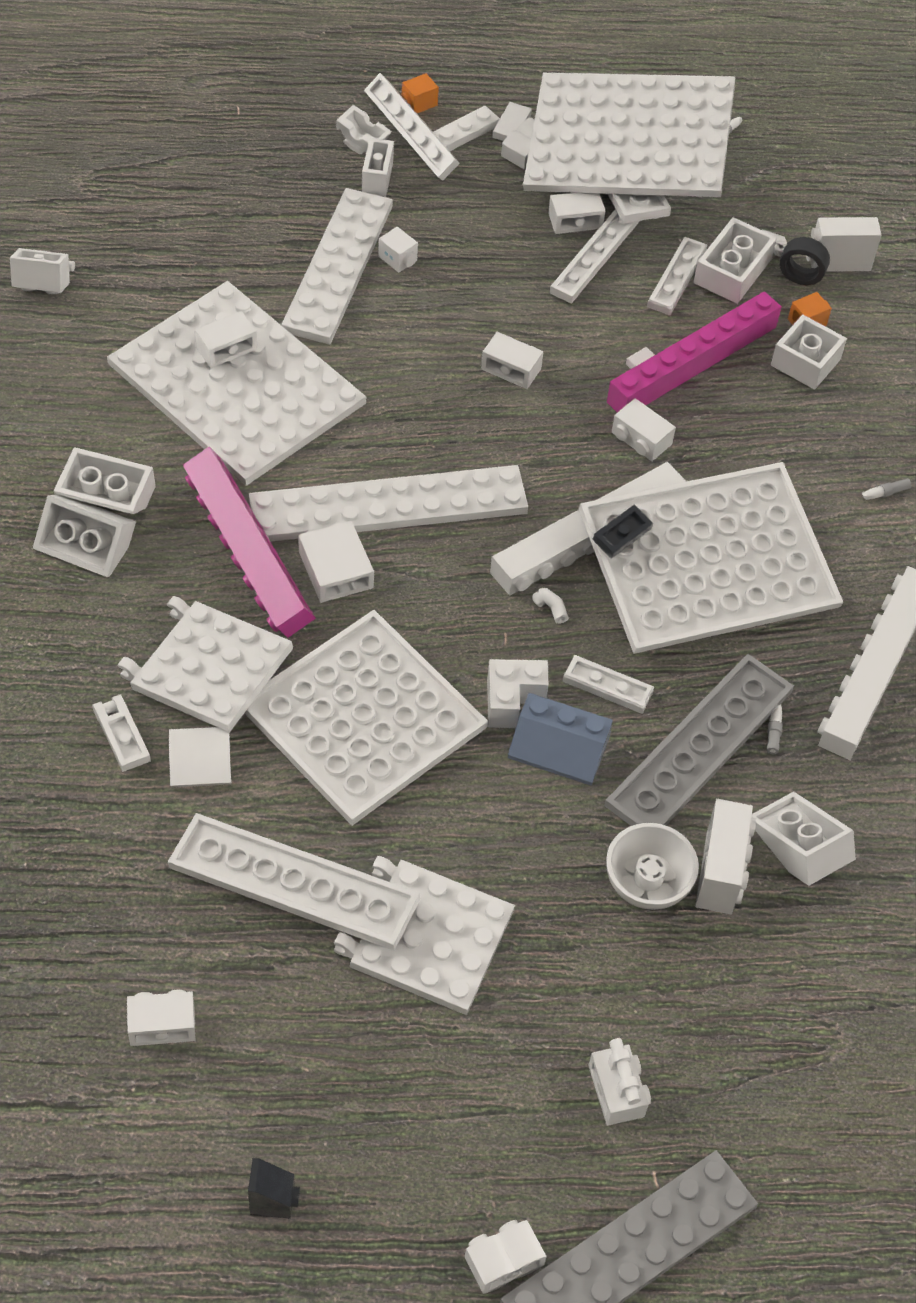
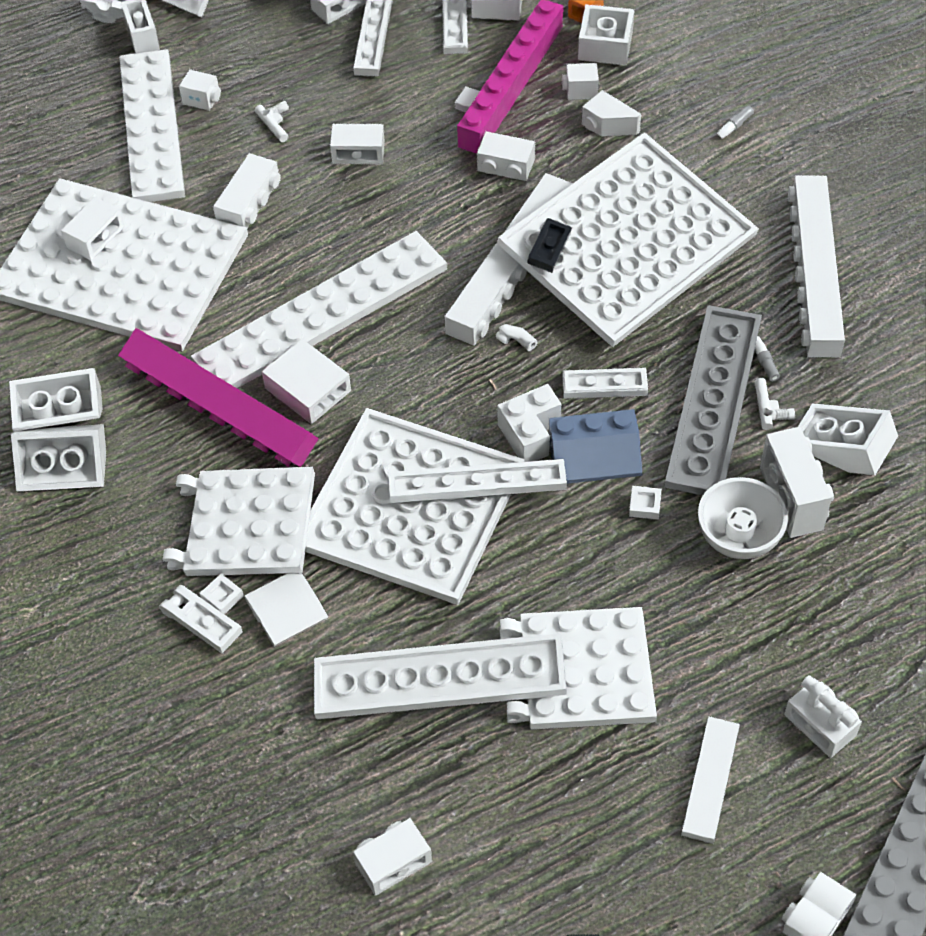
camera: 20 degrees left, 0 degrees up
(151, 719) = (222, 594): none -> white plate
(385, 363) = (247, 191): none -> white brick
(430, 721) = (477, 480): none -> white plate
(450, 302) = (272, 117): none -> white hose
(482, 1090) = (710, 780): none -> white tile
(576, 811) = (645, 502): none -> white plate
(750, 776) = (770, 407): none -> white hose
(758, 387) = (581, 81): none -> white brick
(765, 433) = (610, 116): none -> white slope

